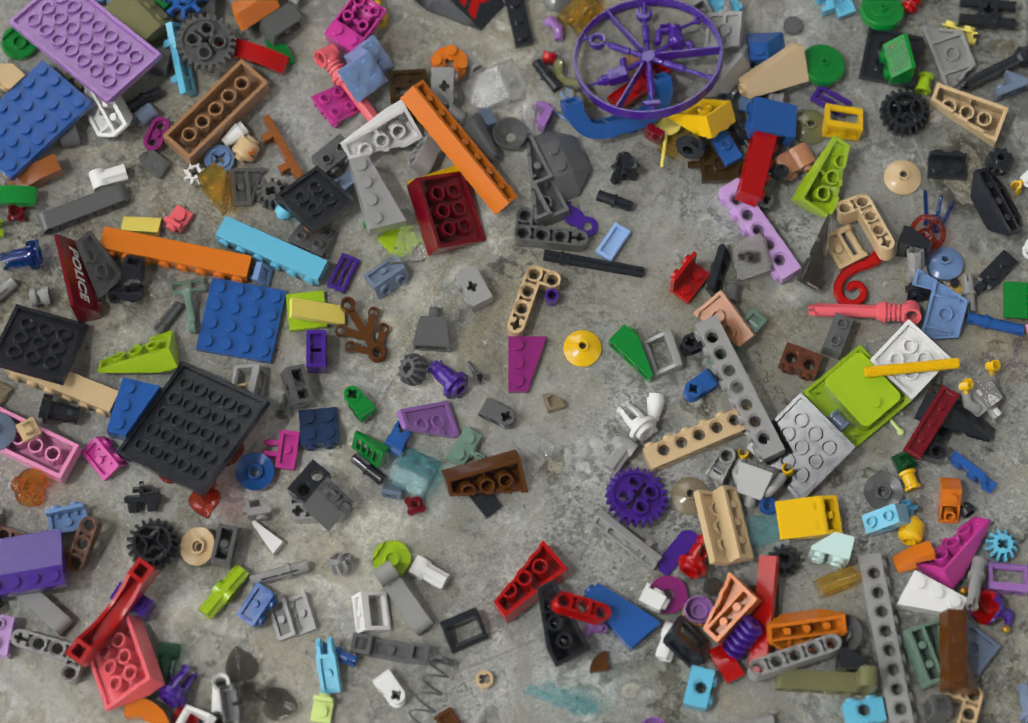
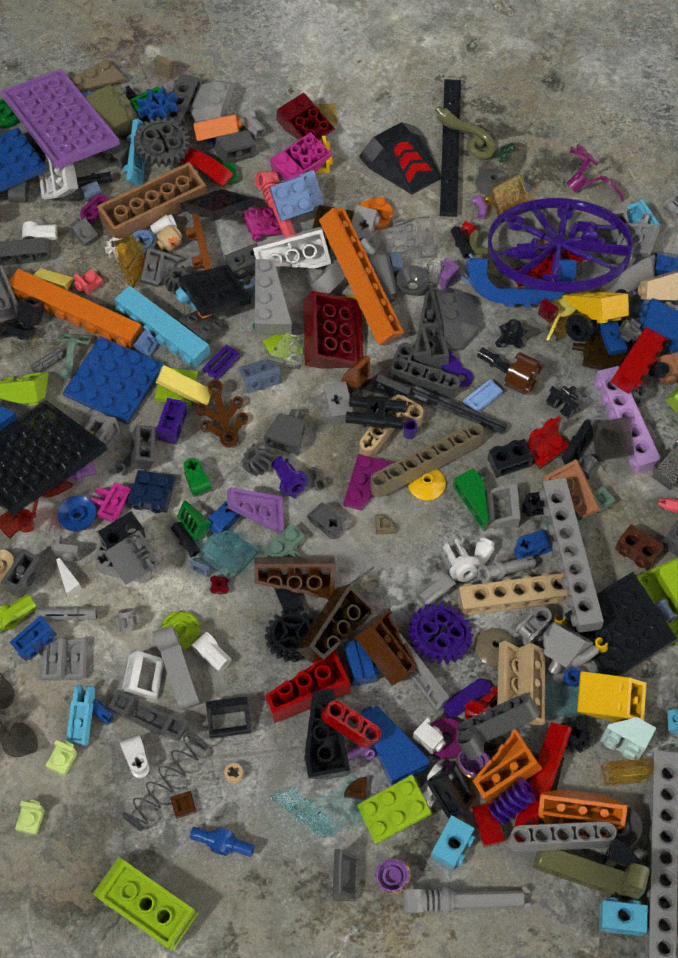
camera: 15 degrees right, 10 degrees down
(286, 100) = (217, 204): none -> black plate
(485, 255) = (357, 374): none -> dark orange slope
(489, 550) = (283, 621): none -> black gear
(508, 284) = (380, 419): none -> black pin
(516, 259) = (385, 386): none -> black wing
(537, 516) = (335, 622): none -> dark brown wedge
(570, 544) = (360, 665): none -> blue brick
(578, 318) = (426, 459): none -> dark tan beam
(591, 527) = (386, 648): none -> reddish brown wedge
(639, 673) = (394, 809): none -> lime plate
(647, 211) = (523, 373): none -> reddish brown brick
(659, 305) = (512, 461): none -> black brick
(675, 421) = (499, 569): none -> light grey pin
(684, 226) = (570, 406): none -> black hips
(708, 572) = (493, 723): none -> dark grey beam
(741, 138) = (630, 330): none -> dark grey gear

